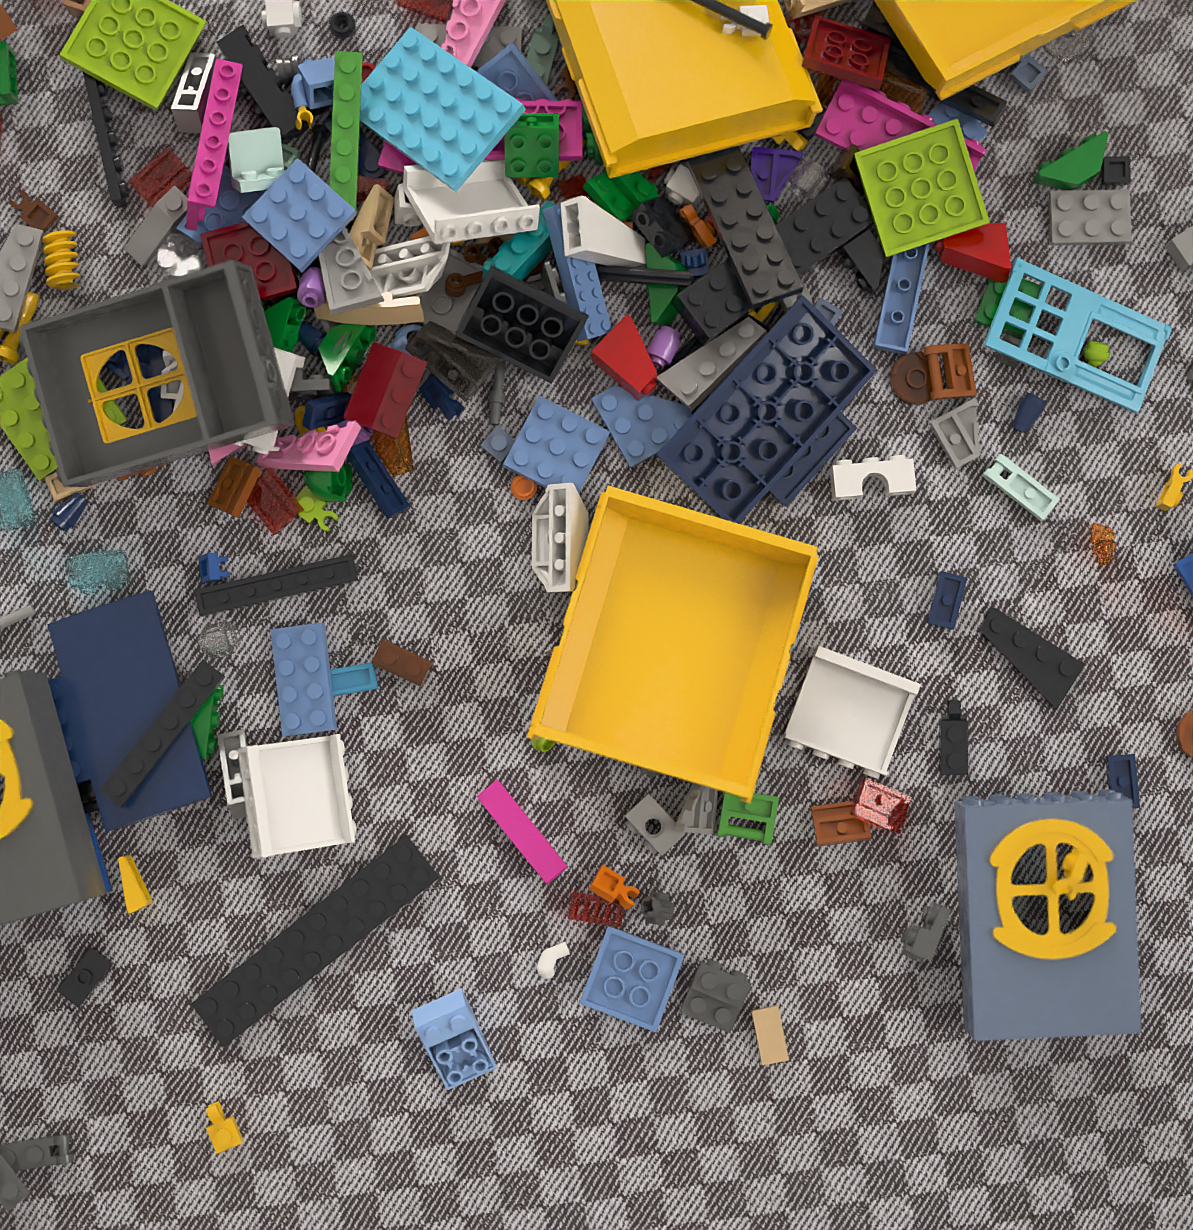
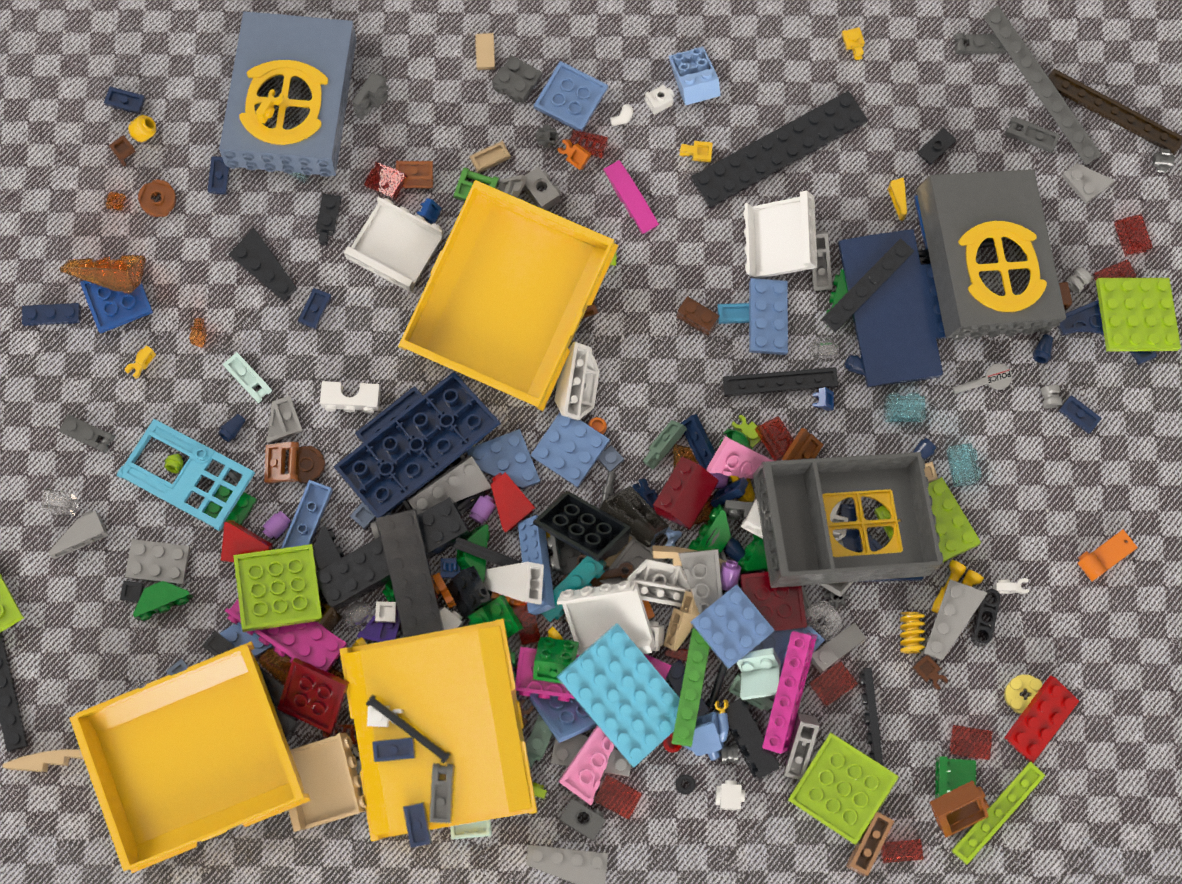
camera: 170 degrees left, 10 degrees down
(175, 625) = (854, 364): none -> dark blue cone
(427, 474) = (664, 443): none -> sand green hinge
(430, 918) = (700, 150): none -> yellow plate
(505, 984) = (659, 104): none -> white brick
(735, 868) = (490, 157): none -> tan tile
(771, 183) = (385, 612): none -> white plate
(809, 768) = (430, 210): none -> blue tile
(940, 285) = (276, 525): none -> medium lavender brick

